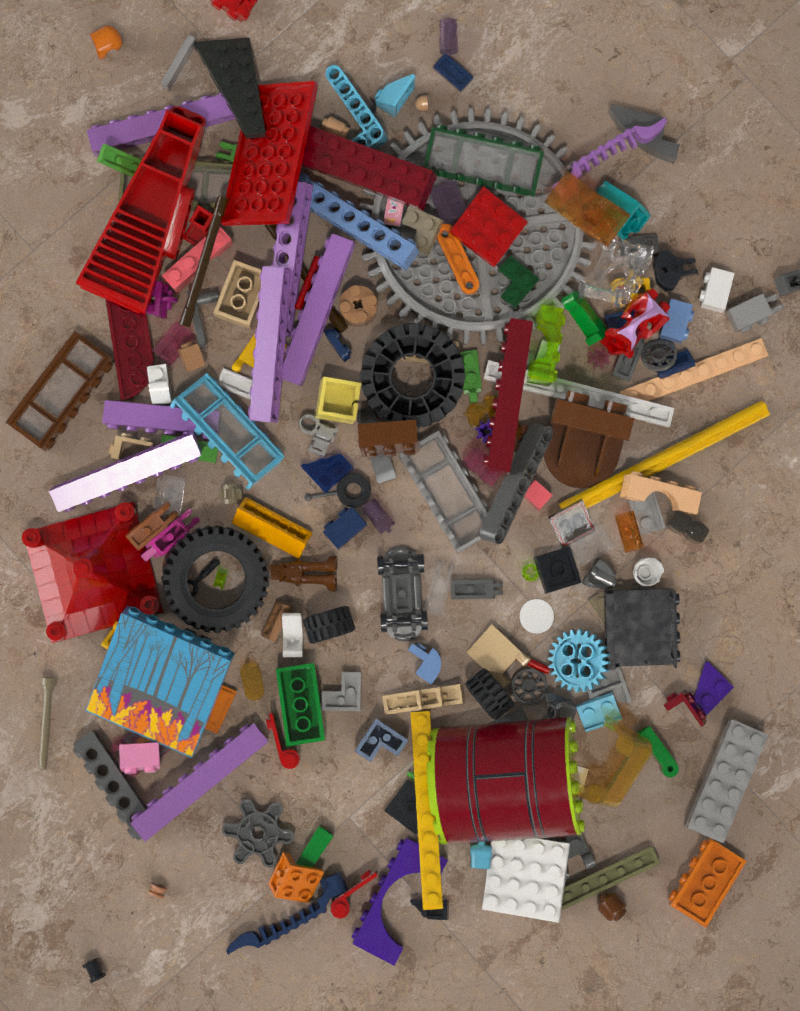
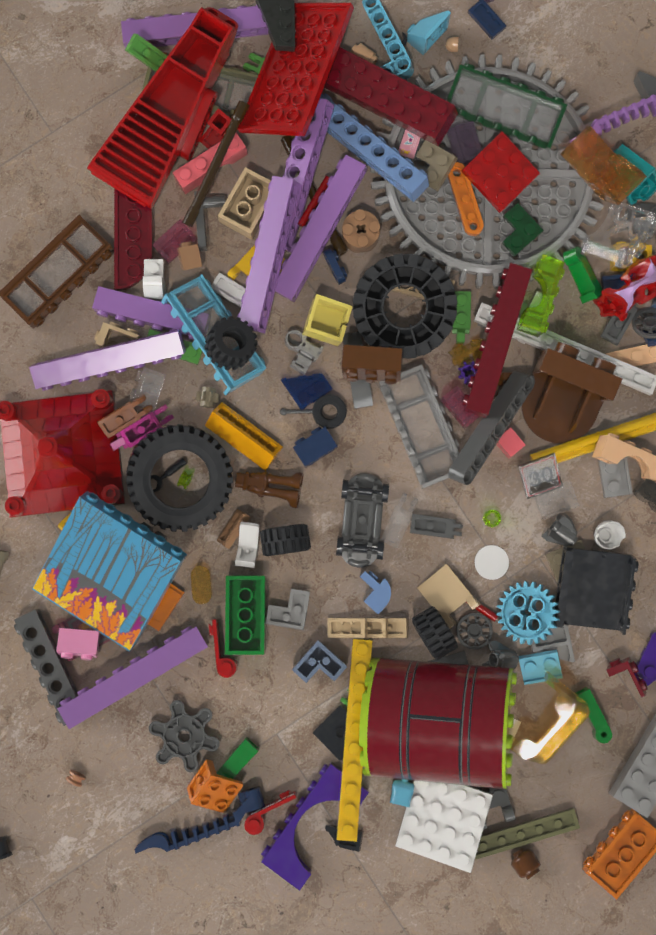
camera: 10 degrees right, 0 degrees up
(163, 301) = (170, 198): magenta hips -> none
(256, 428) = (240, 333): none -> black tyre
(380, 519) = (350, 441): clear purple piece -> none
(557, 570) = (519, 519): black plate -> none
(600, 353) = (592, 313): clear pink gear -> none
(629, 531) = (596, 492): clear orange plate -> none

